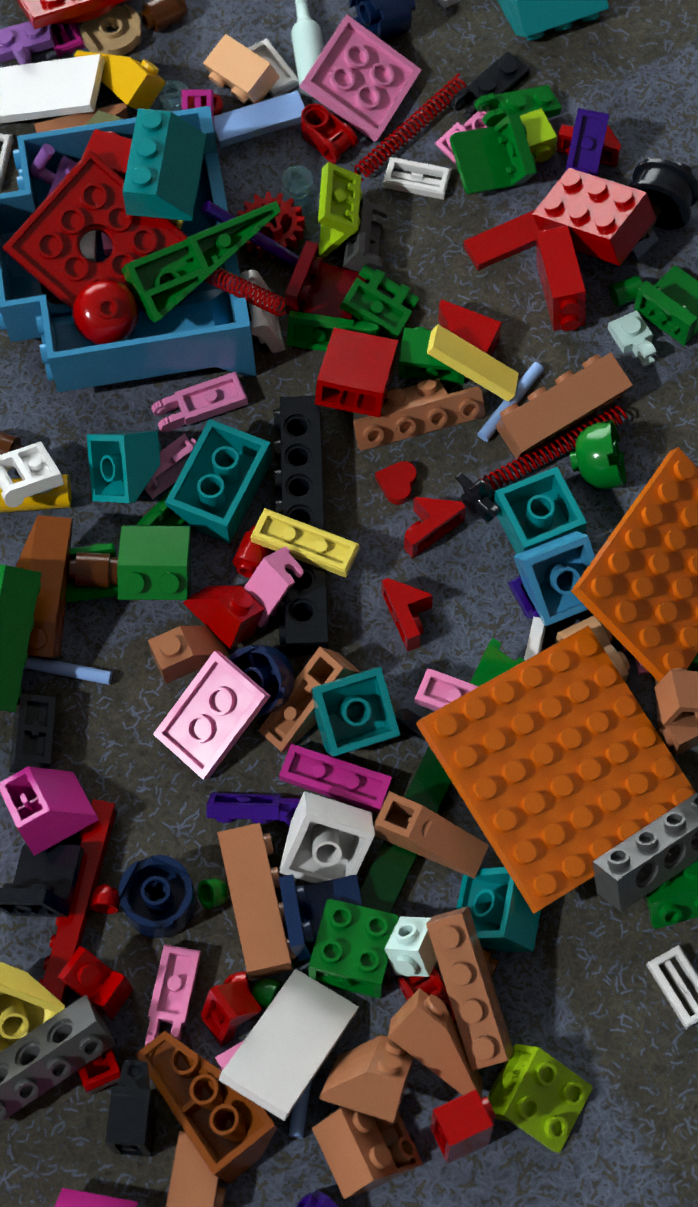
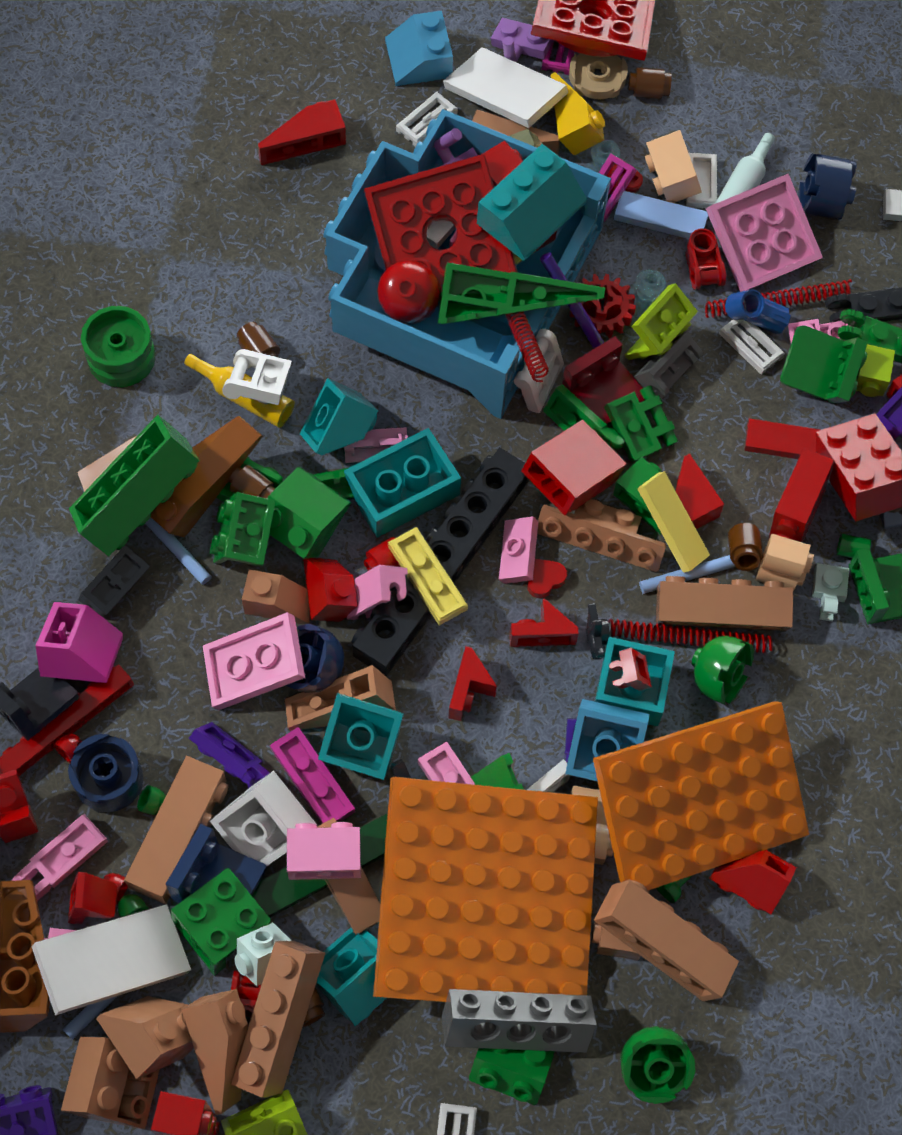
camera: 30 degrees right, 0 degrees up
(115, 610) = (243, 529): none -> green bracket
(201, 402) = (440, 411): bright pink hinge -> none
(359, 473) = (518, 550): none -> bright pink plate
(404, 146) = (758, 311): none -> blue piece
(407, 822) = (323, 851): none -> bright pink brick
(540, 502) = (634, 670): none -> red tile
(543, 346) = (745, 546): none -> reddish brown brick
(585, 336) = (785, 561): none -> light nougat brick

